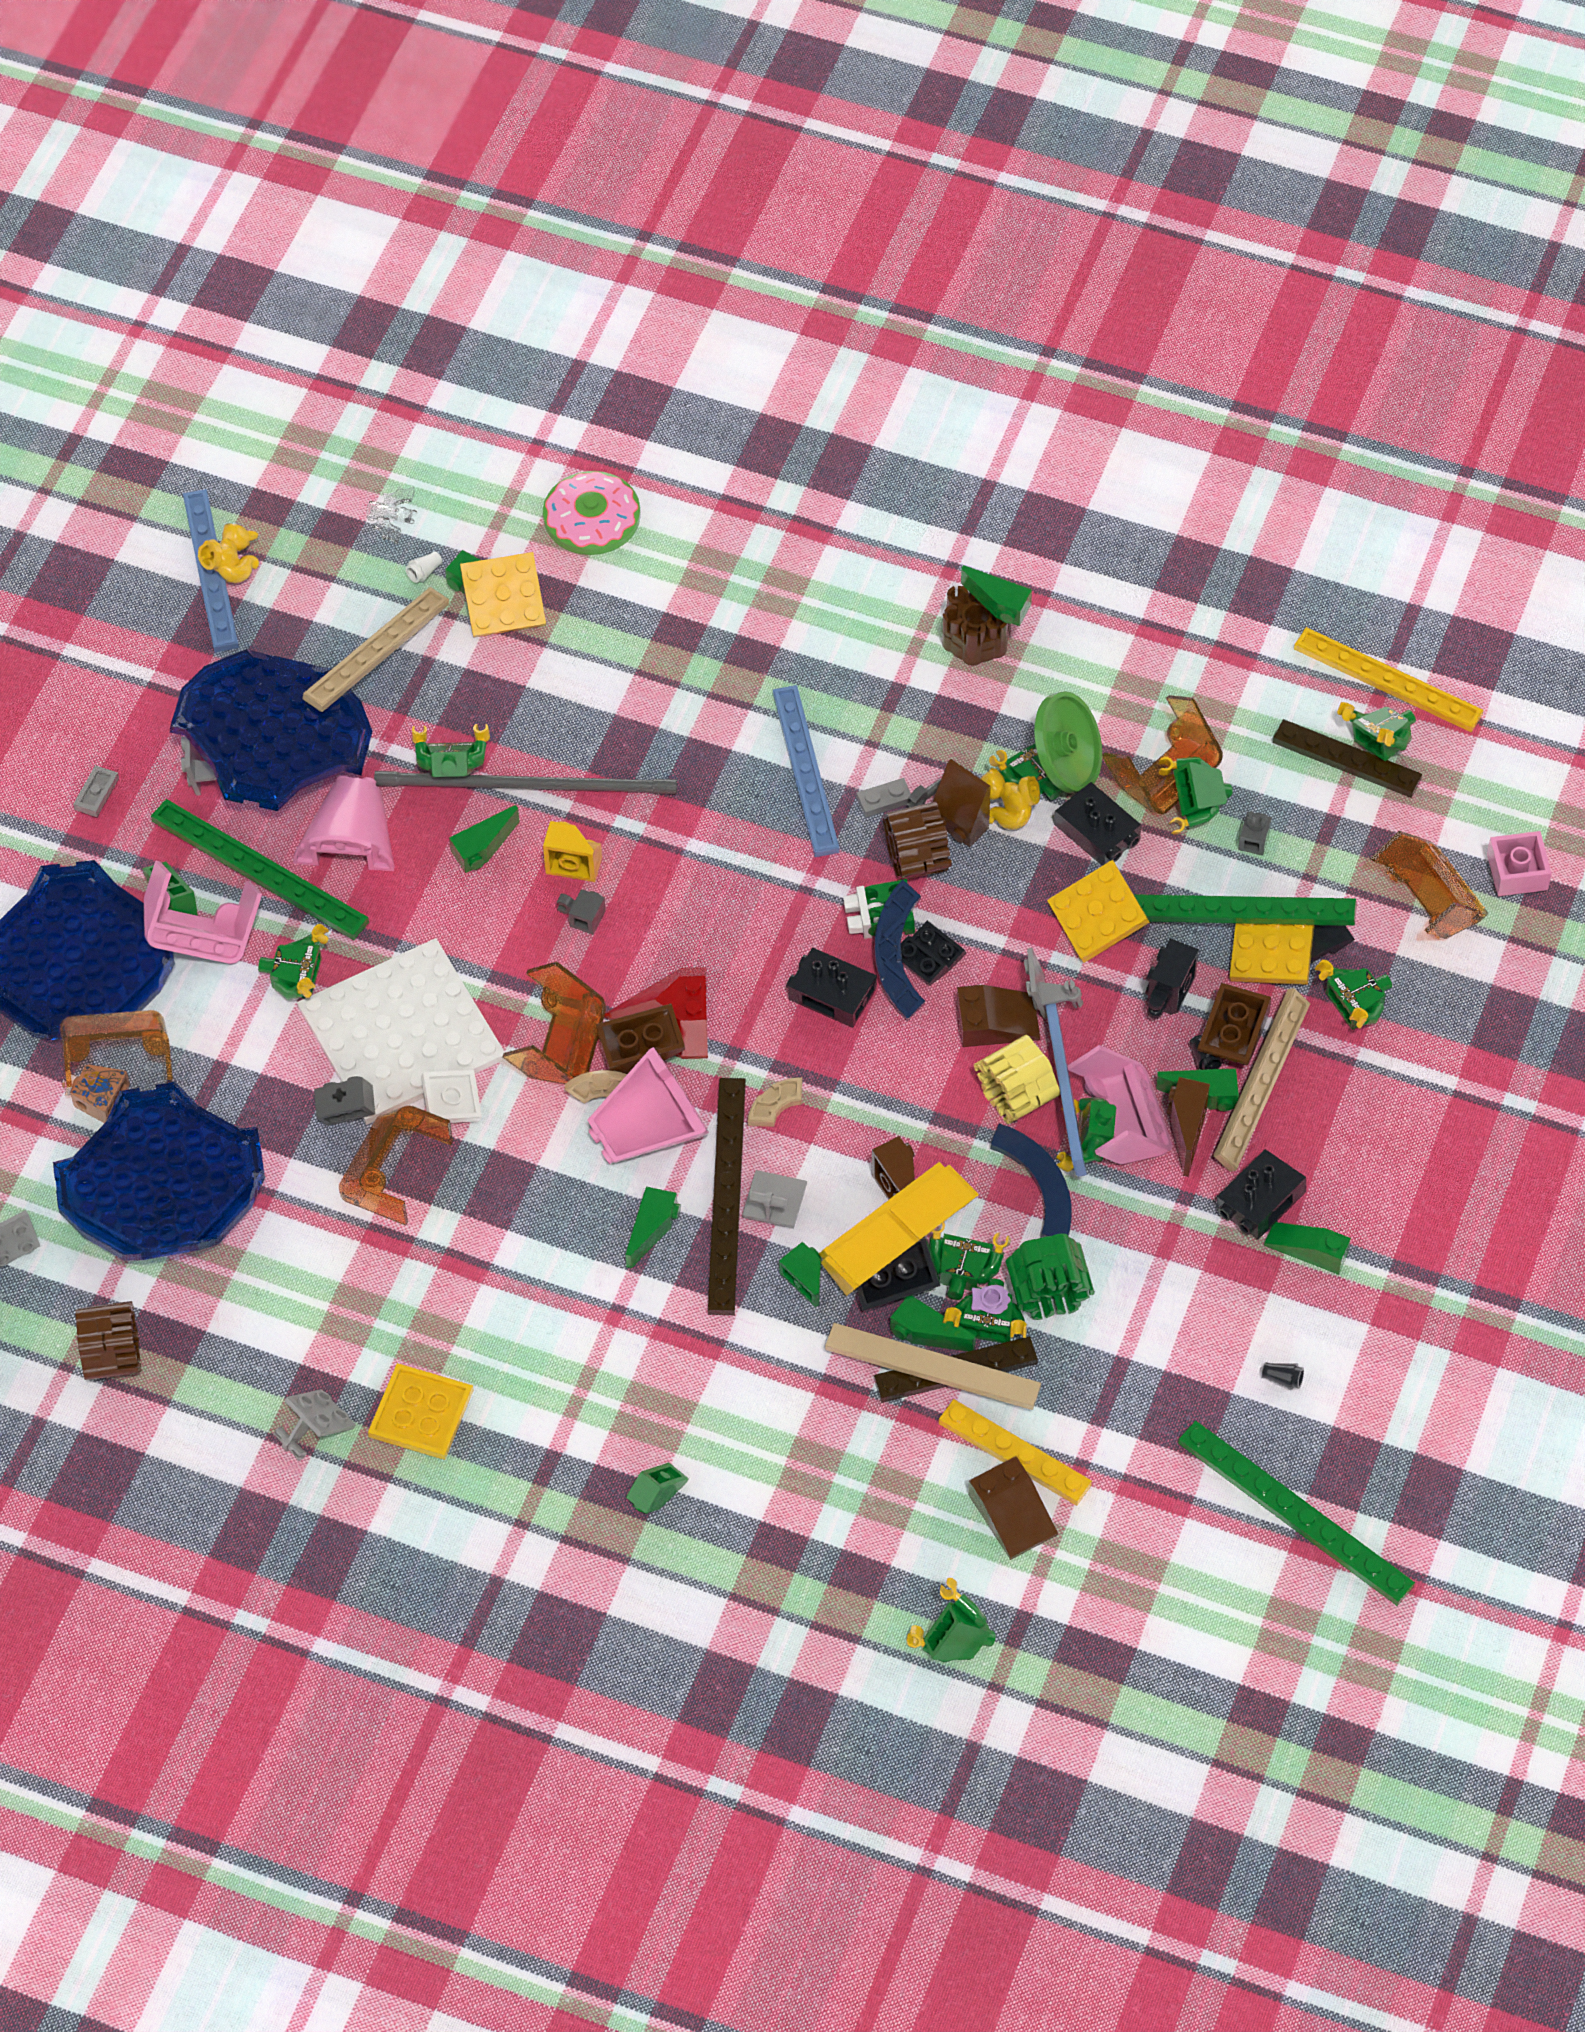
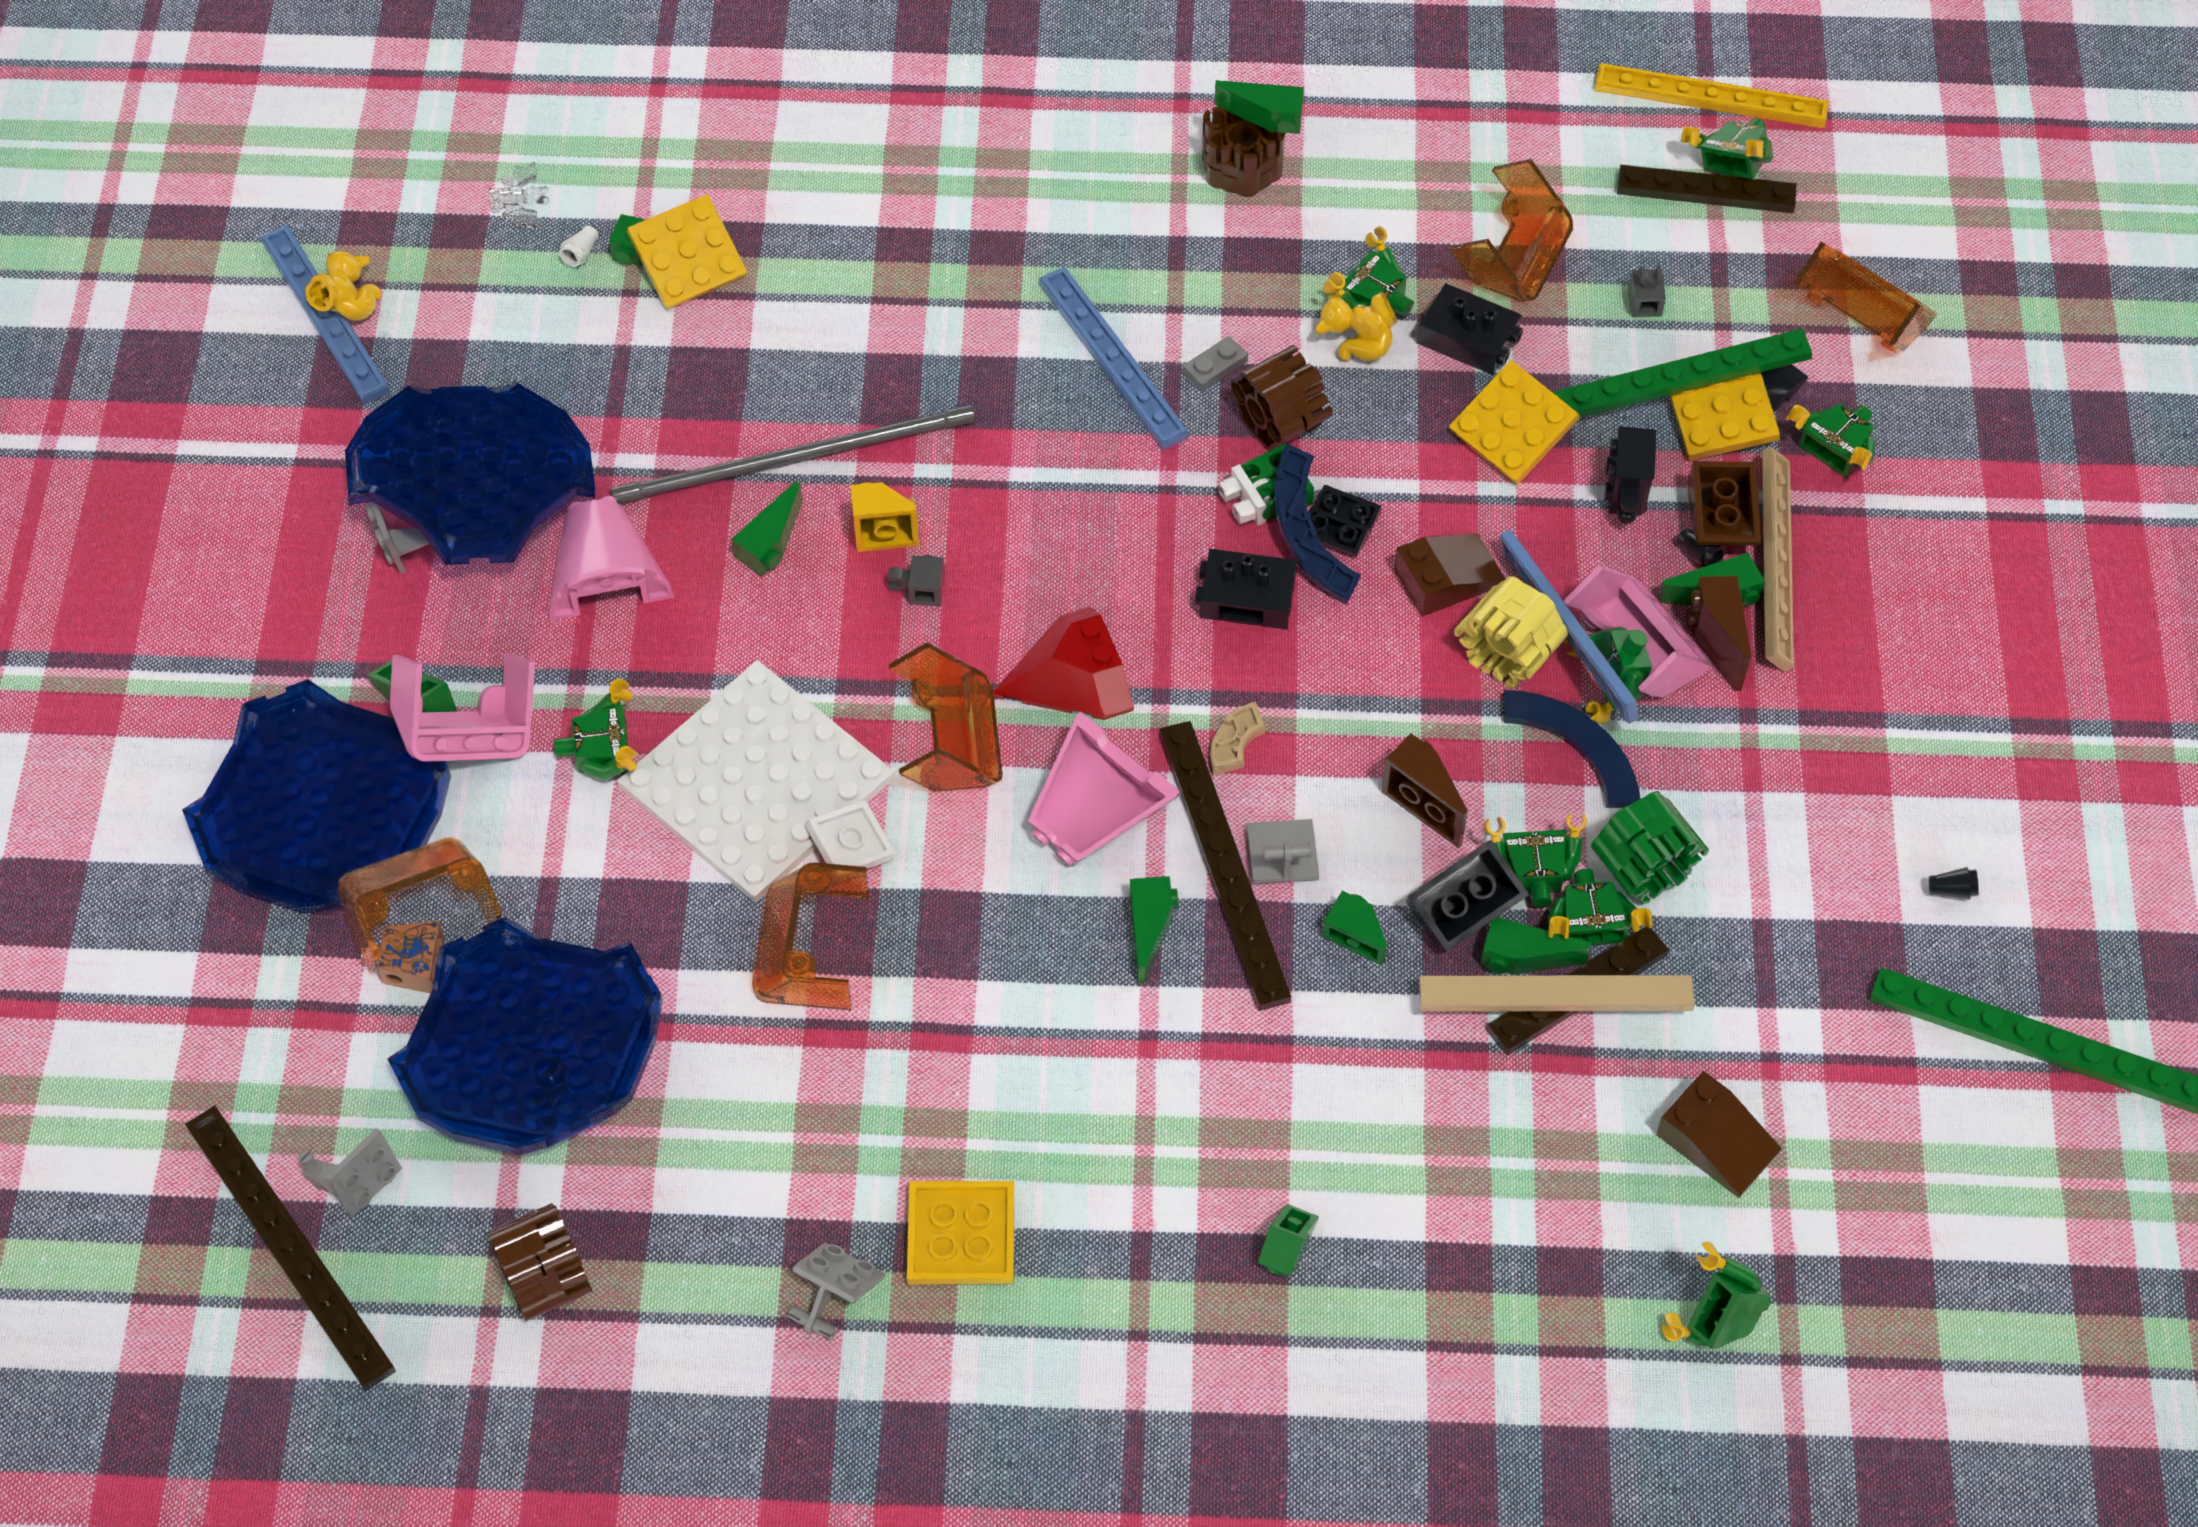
camera: 20 degrees left, 0 degrees up
(96, 791) = (277, 600): light grey plate -> none
(260, 869) = (512, 637): green plate -> none
(344, 1101) = (734, 871): dark grey brick -> none
(375, 649) = (559, 350): tan tile -> none
(450, 758) = (697, 448): green torso -> none
(591, 513) = (751, 140): dish -> none
(594, 1084) = (1019, 776): tan tile -> none
(631, 1036) = (1044, 711): reddish brown slope -> none
(896, 1226) = (1452, 842): yellow piece -> none
(921, 794) = (1260, 346): dark grey bar -> none
(963, 803) = (1320, 334): reddish brown slope -> none
(990, 1299) = (1593, 894): lavender animal -> none
(1005, 1445) = (1686, 1064): yellow plate -> none
(1048, 993) = (1500, 527): light grey plate -> none
(1068, 741) = (1407, 244): bright green dish -> none
(1198, 789) = (1568, 261): green torso -> none
(1261, 1194) = (1837, 686): black piece -> none
(1310, 1244) = (1916, 727): green slope -> none
(1519, 863) = (1948, 249): bright pink brick -> none

